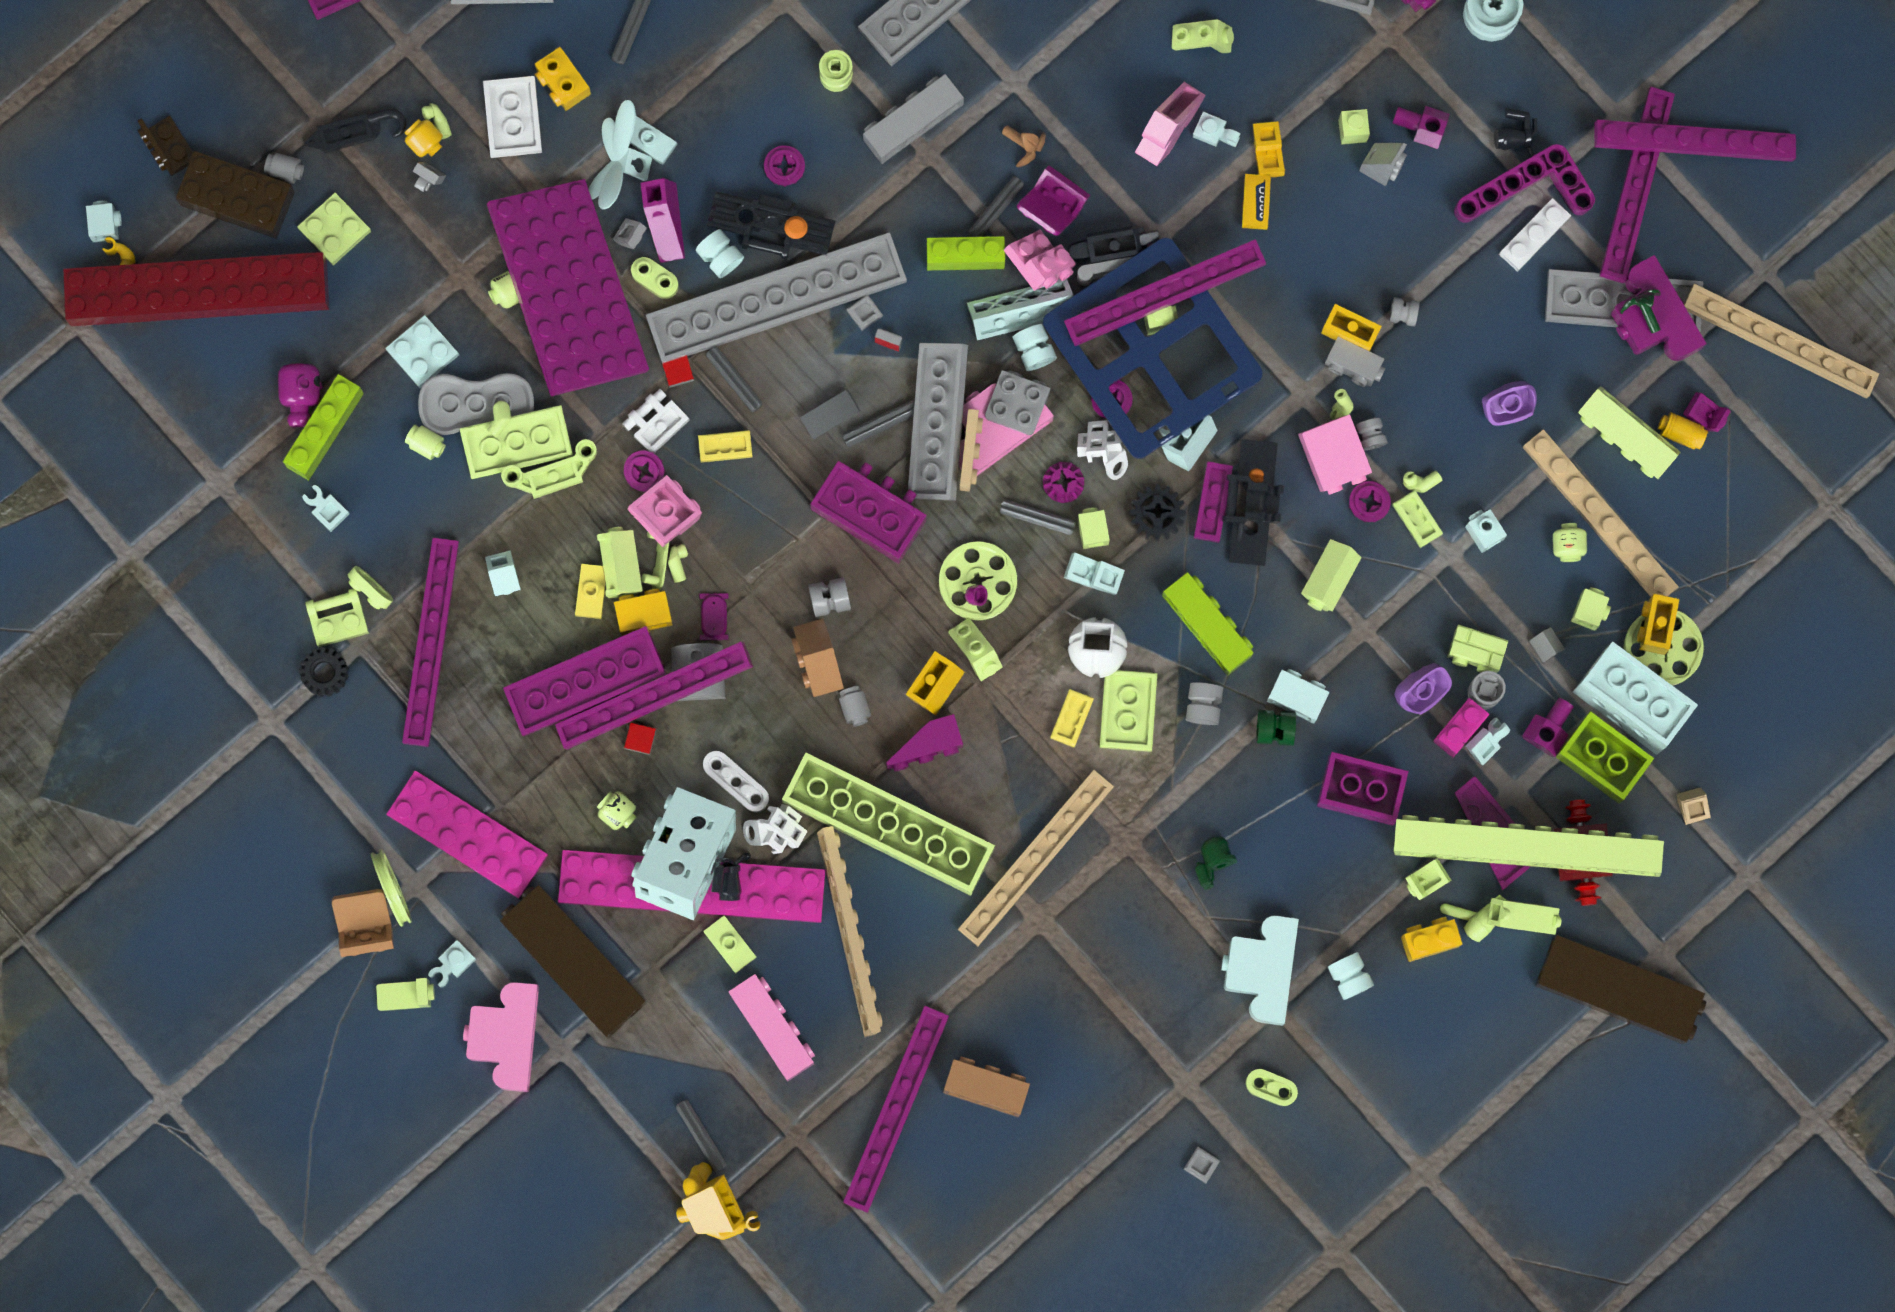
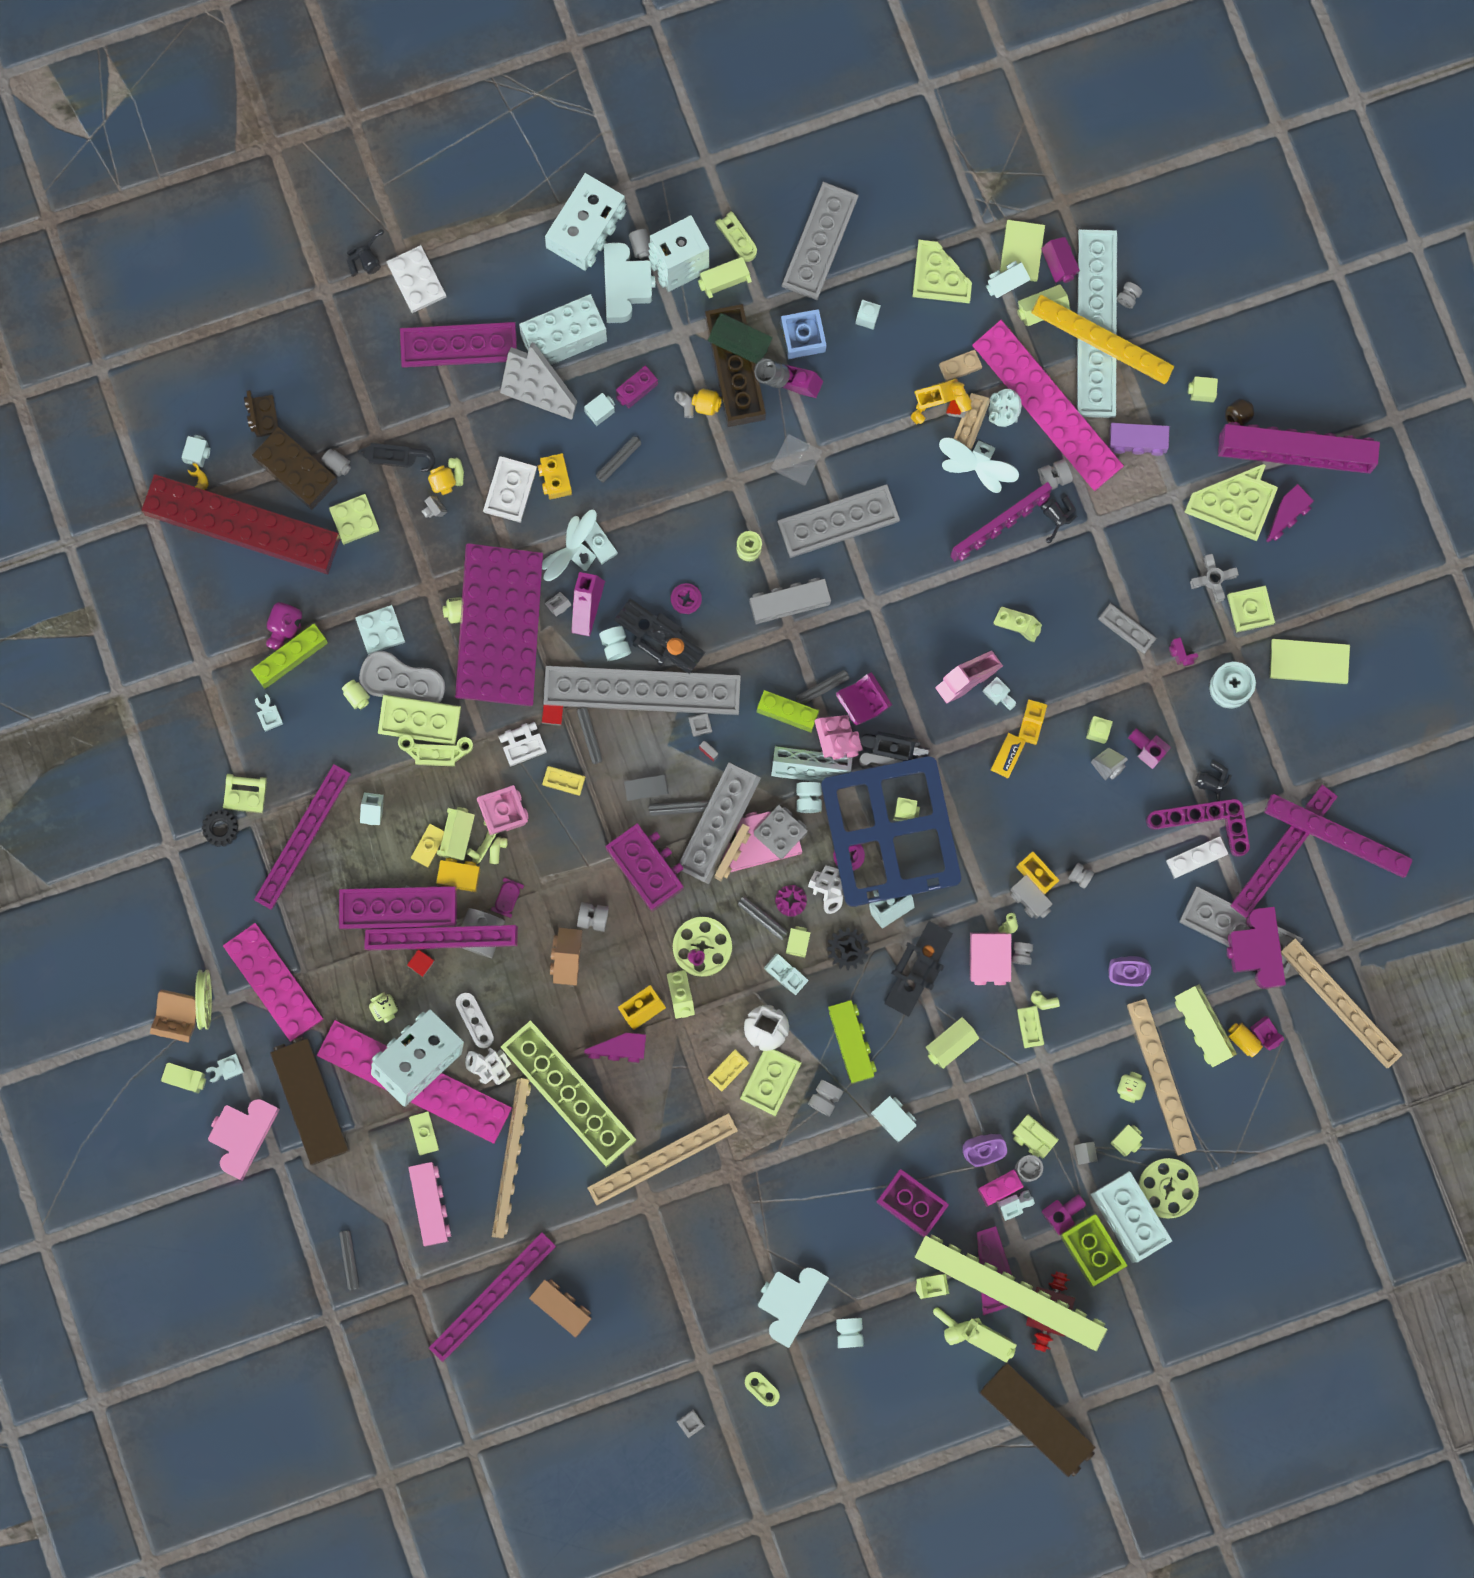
camera: 20 degrees right, 0 degrees up
(364, 582) = (273, 776): yellowish green plate -> none
(501, 418) = (415, 699): yellowish green arm -> none
(633, 473) = (492, 772): magenta gear -> none
(654, 277) = (563, 641): yellowish green plate -> none
(712, 1206) = (335, 1313): yellow torso -> none
(726, 878) = (439, 1087): black piece -> none
(854, 706) = (579, 1000): light grey brick -> none
(1028, 141) = (865, 650): medium nougat plant -> none
(1165, 292) = (915, 796): magenta plate -> none
(1212, 502) = (890, 957): magenta plate -> none
(1215, 857) = (789, 1209): dark green piece -> none
(1276, 727) = (869, 1135): dark green wheel -> none
(1380, 496) = (1011, 1000): magenta gear -> none
(1431, 940) = (917, 1330): yellow brick -> none
(1485, 530) = (1075, 1054): light aqua brick -> none
(1645, 301) = (1253, 937): dark green plant -> none
(1658, 625) = (1170, 1171): yellow brick -> none
(1693, 805) = (1143, 1309): tan slope -> none

